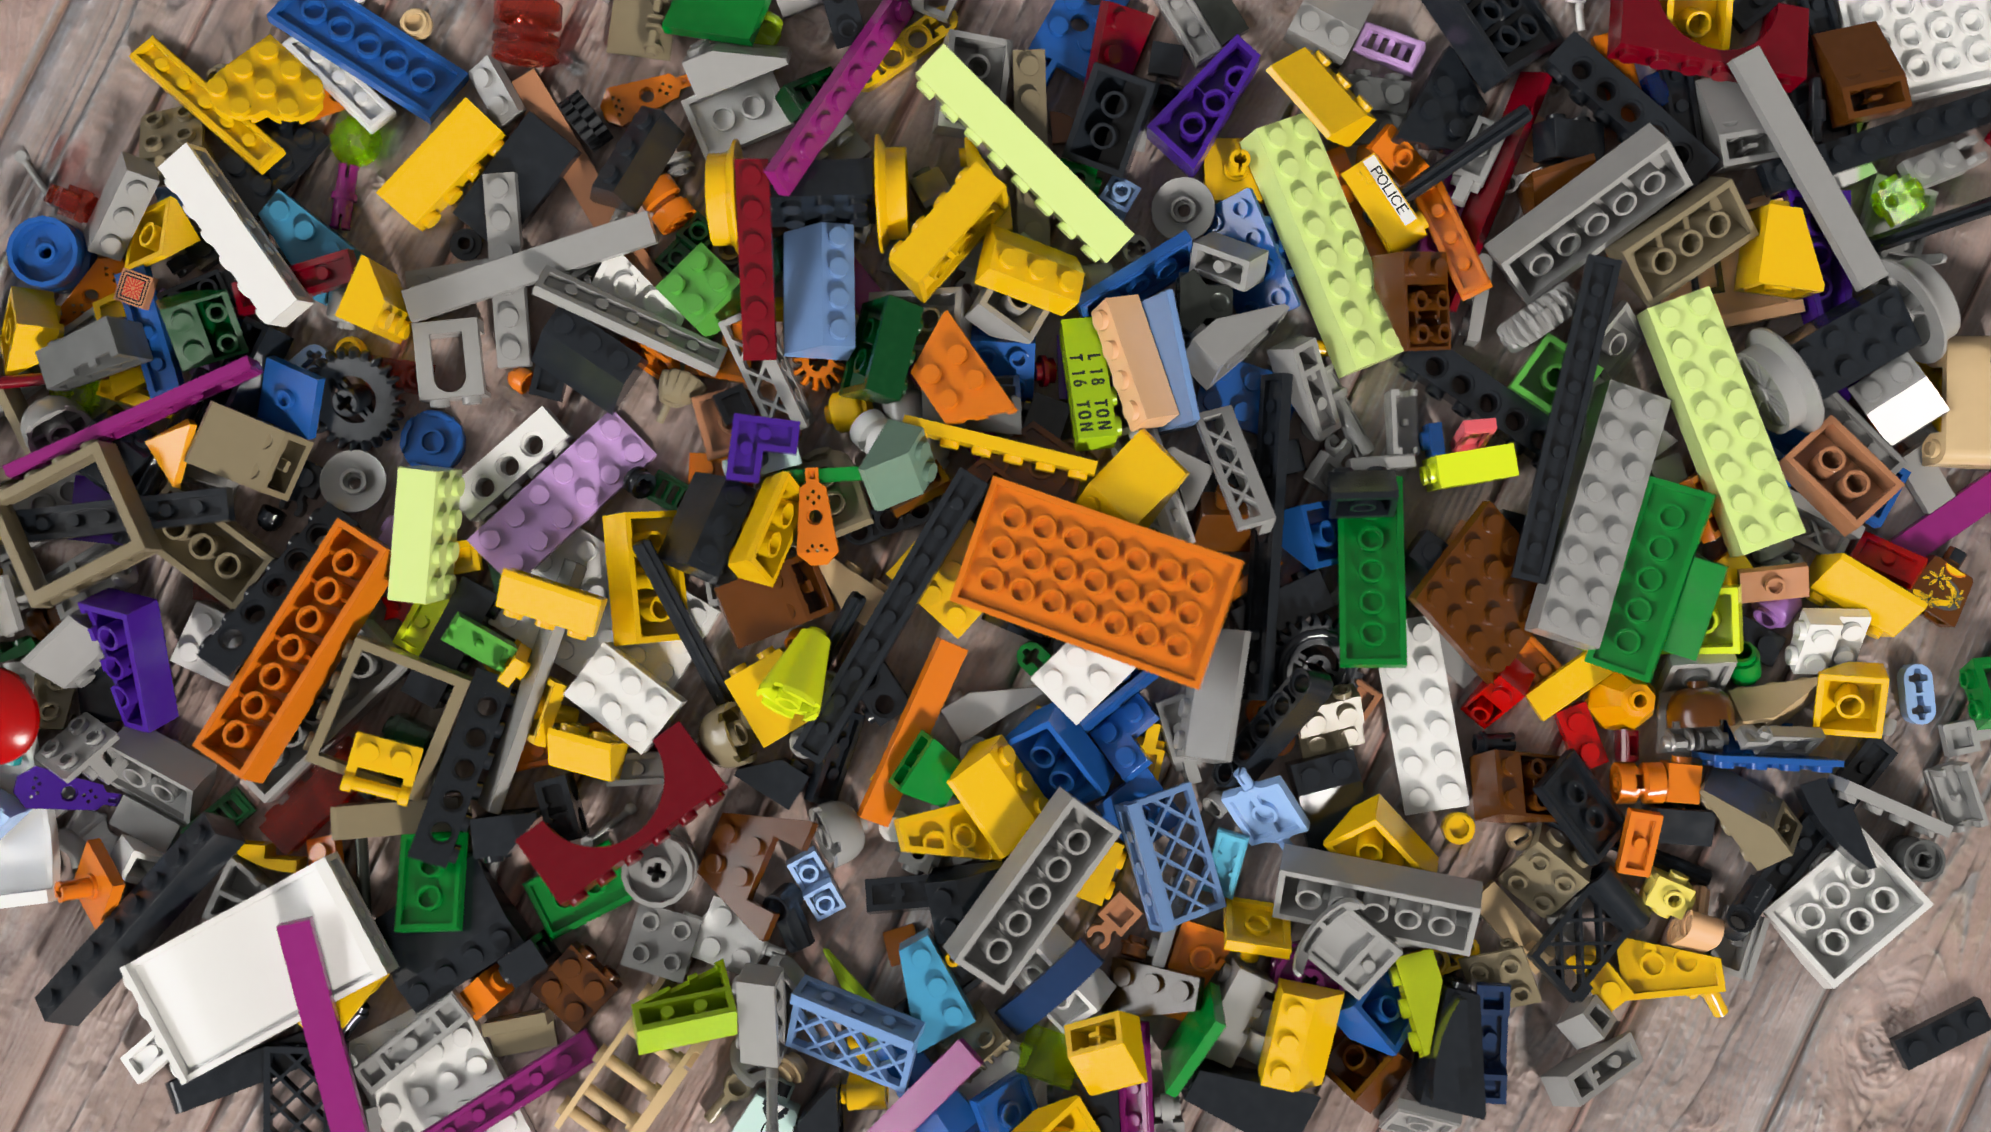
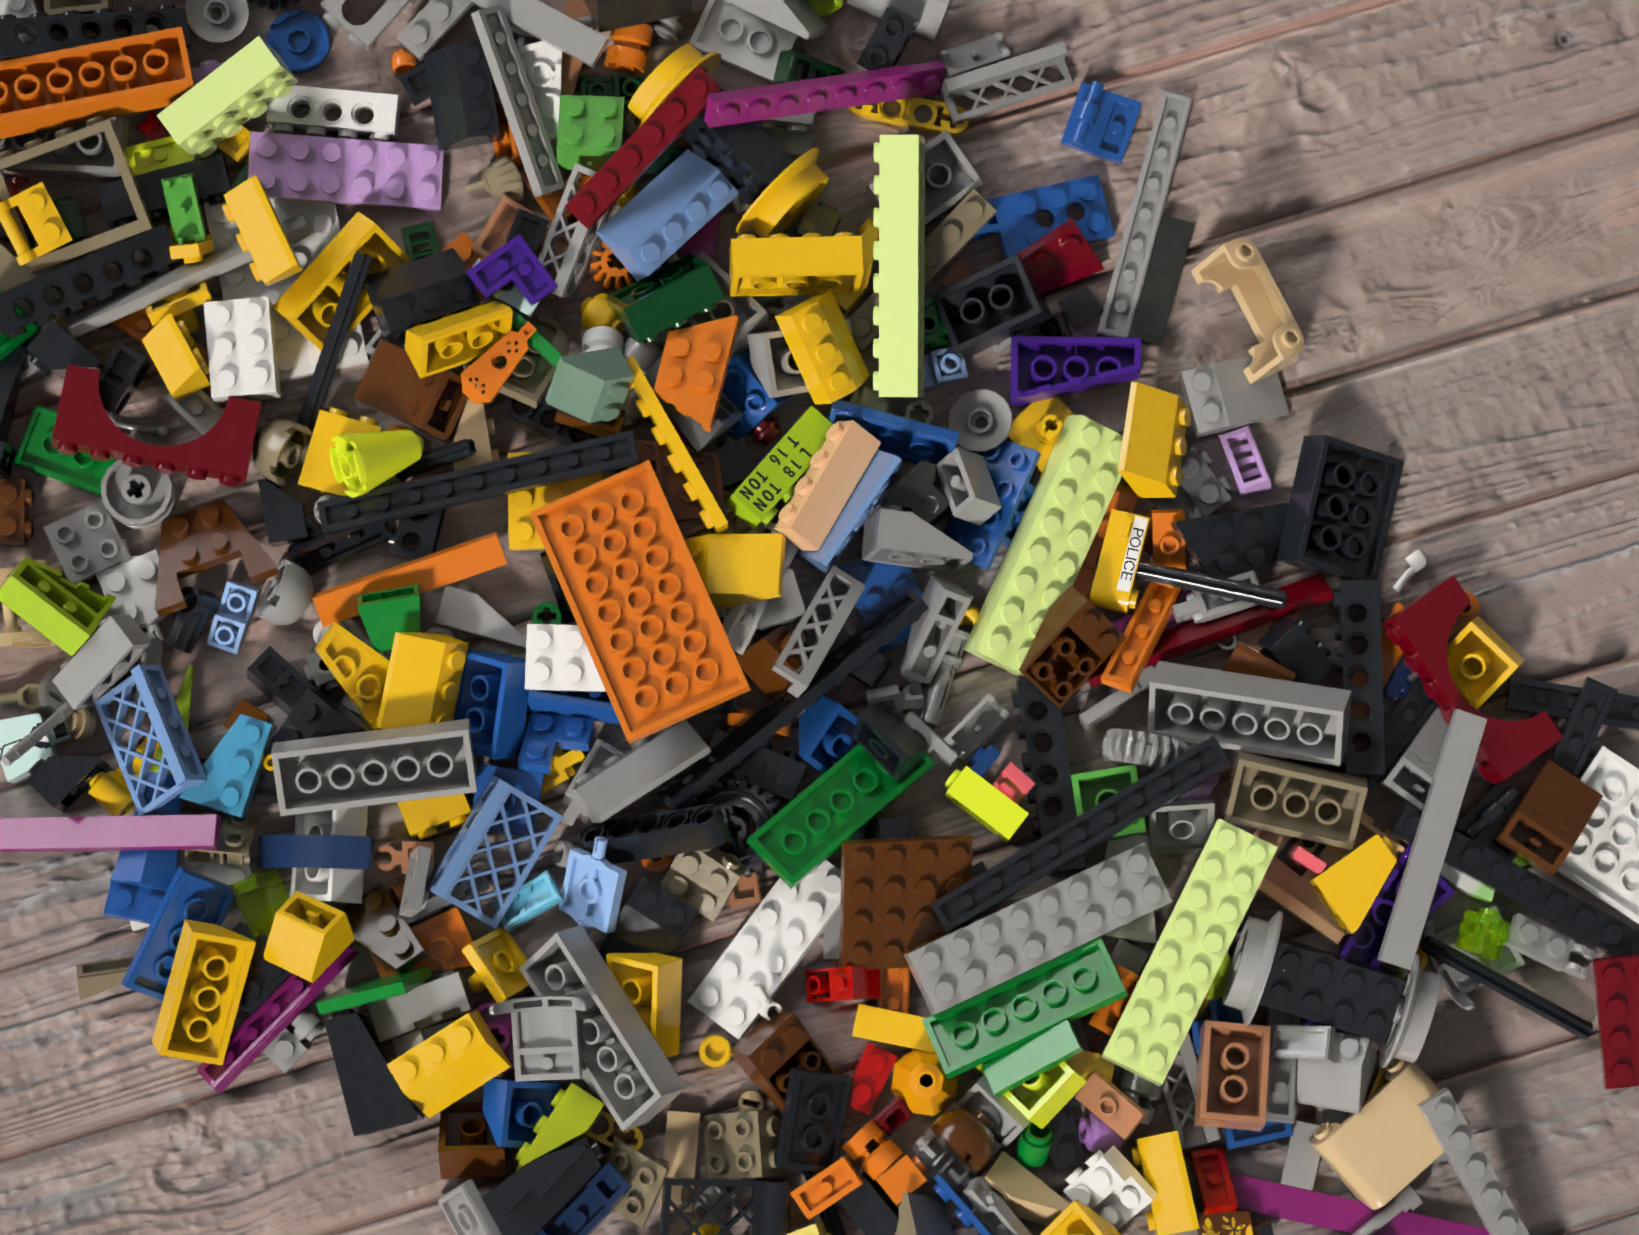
camera: 55 degrees right, 5 degrees down
(637, 475) = (406, 208): black bush -> none
(1134, 925) = (414, 893): none -> light grey plate
(1465, 762) = (765, 1001): none -> white hand
(1485, 742) = (805, 1016): black pin -> none
(1728, 275) = (1306, 859): none -> coral tile
(1863, 401) = (1302, 1042): none -> light grey tile

